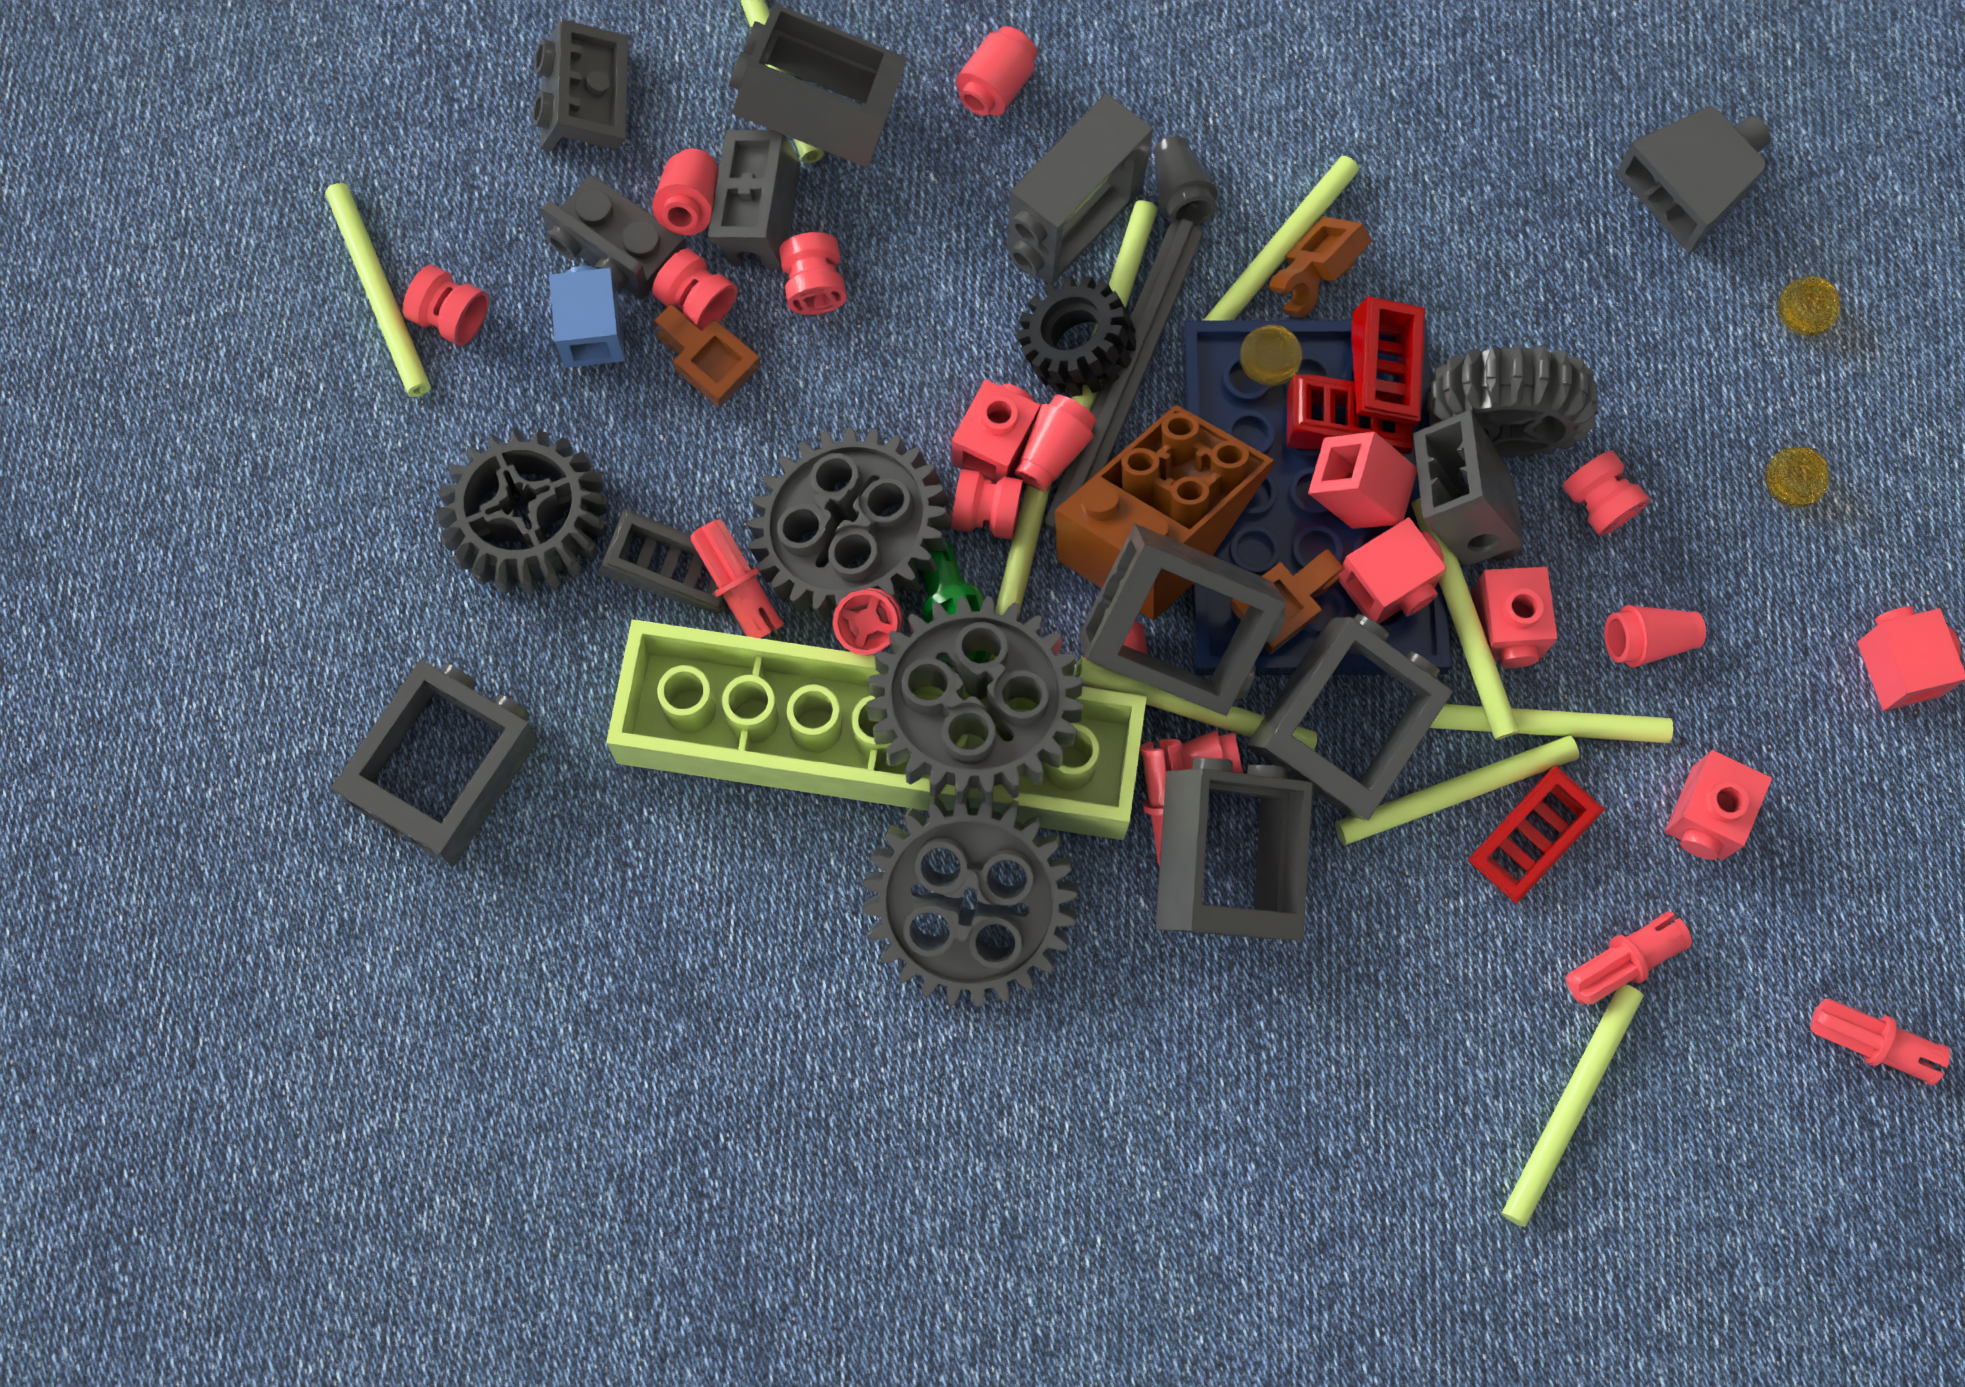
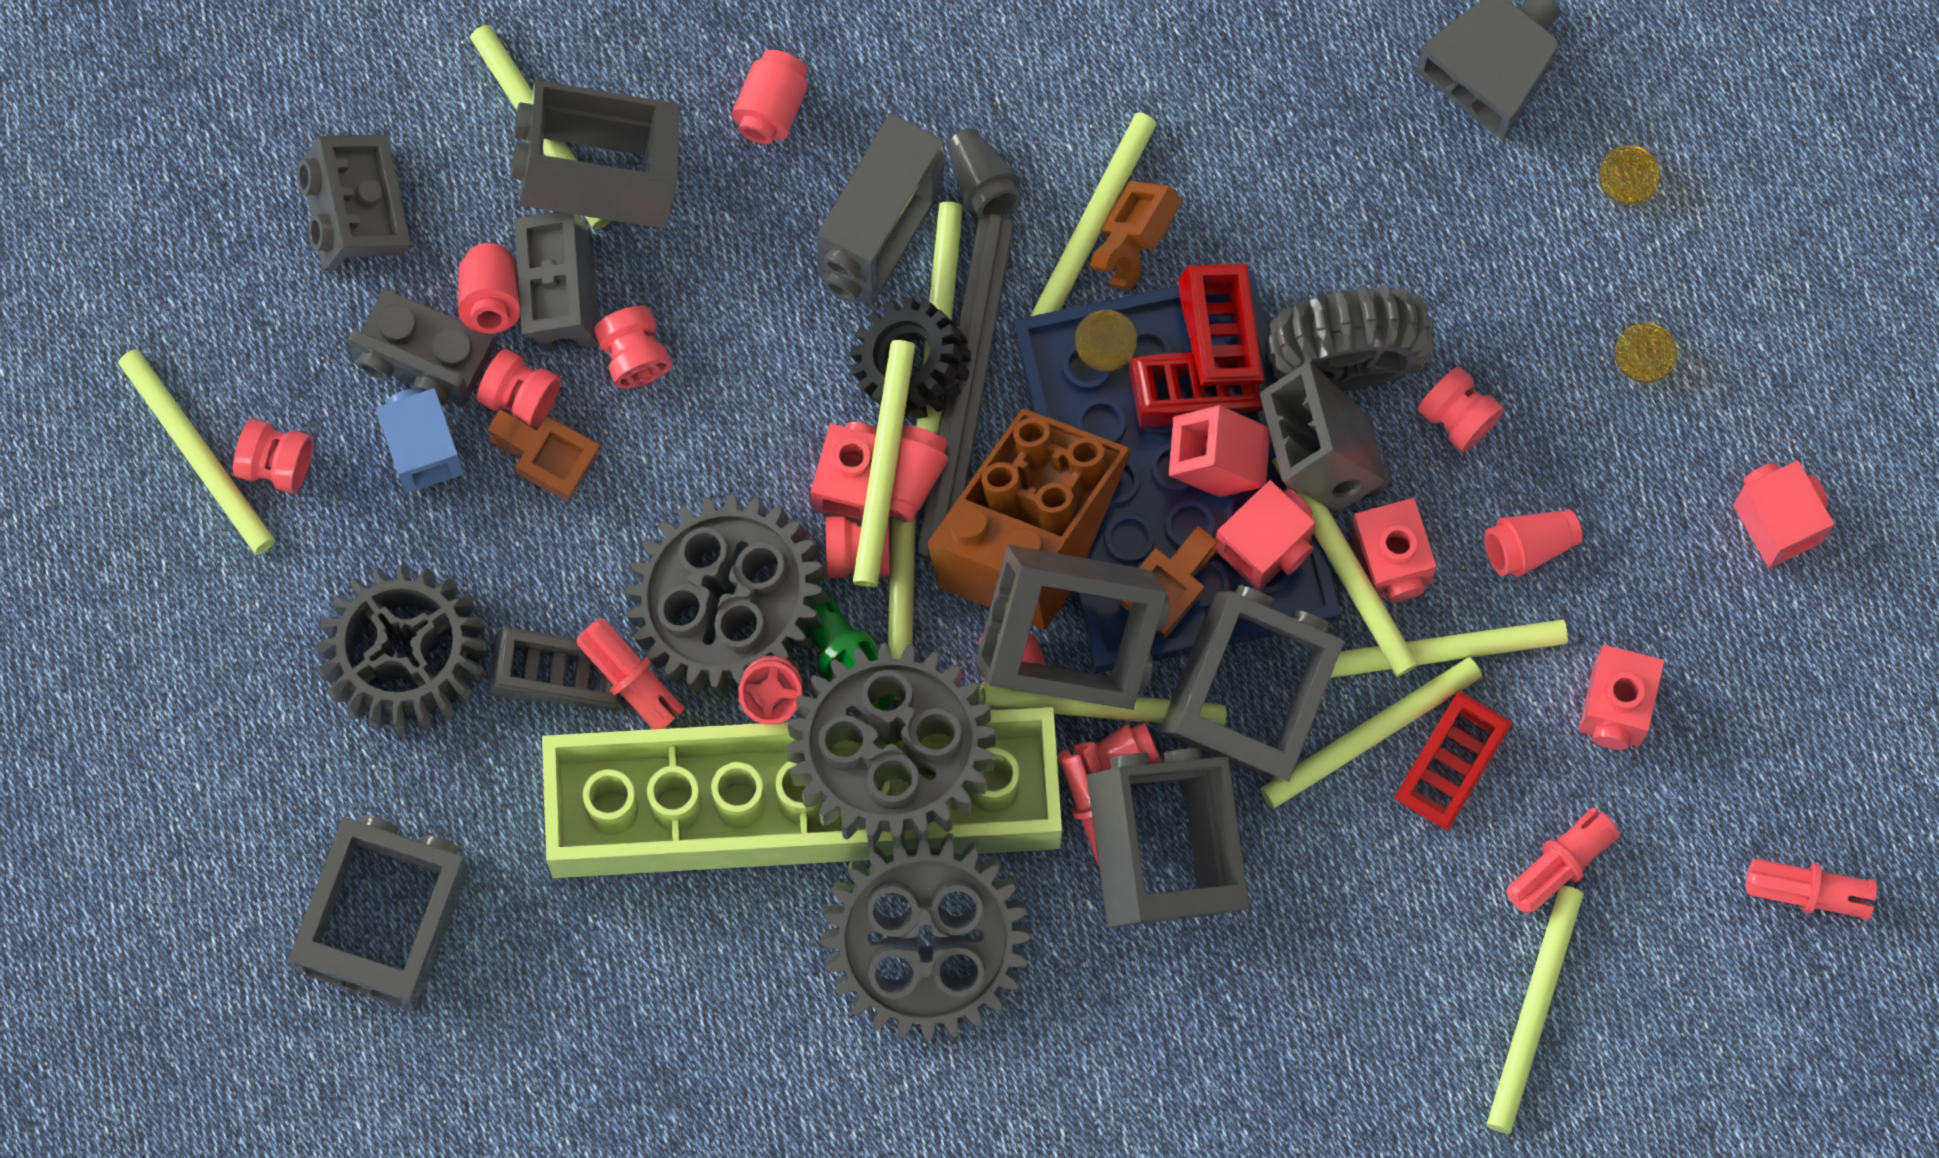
camera: 10 degrees left, 0 degrees up
(1028, 427) = (884, 463): none -> yellowish green piece

